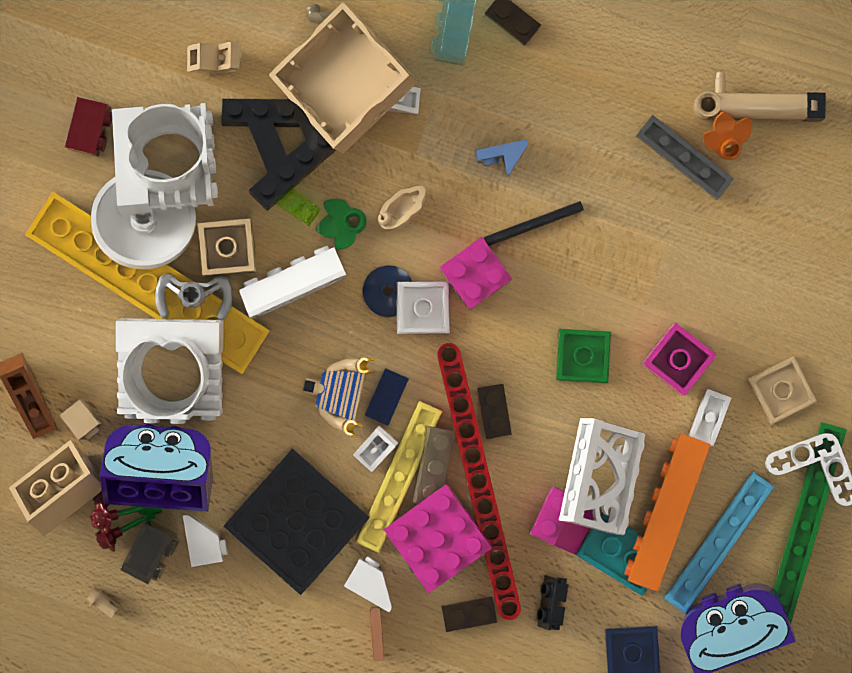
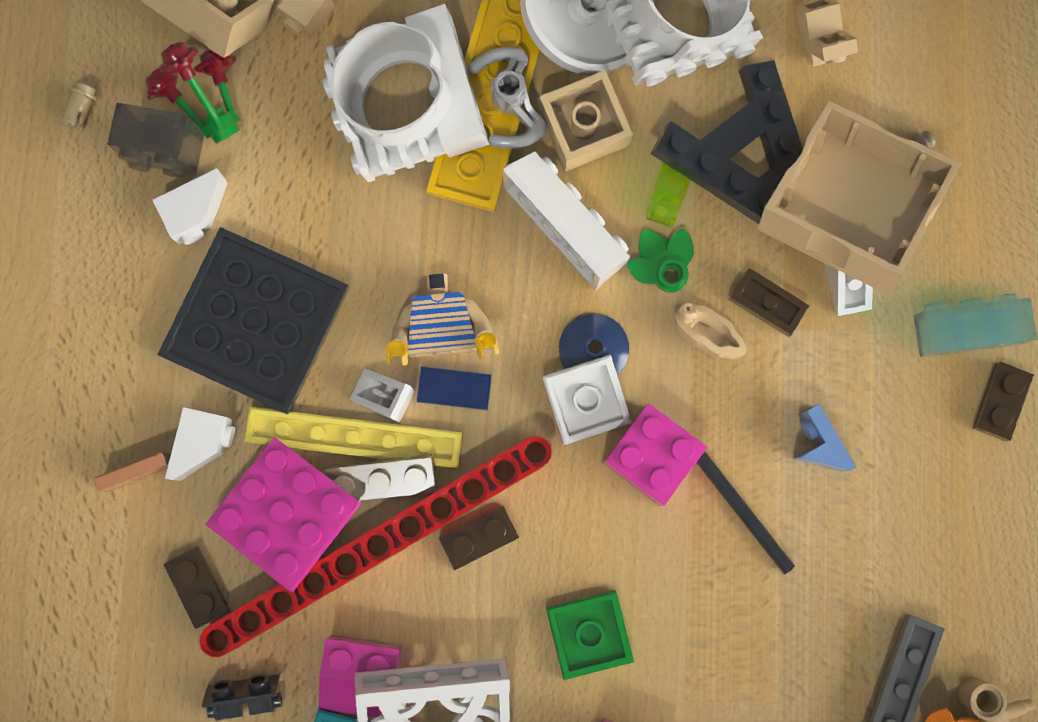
camera: 65 degrees right, 5 degrees down
(157, 468) = (266, 112): brick -> none
(394, 159) = (769, 302): none -> dark brown plate

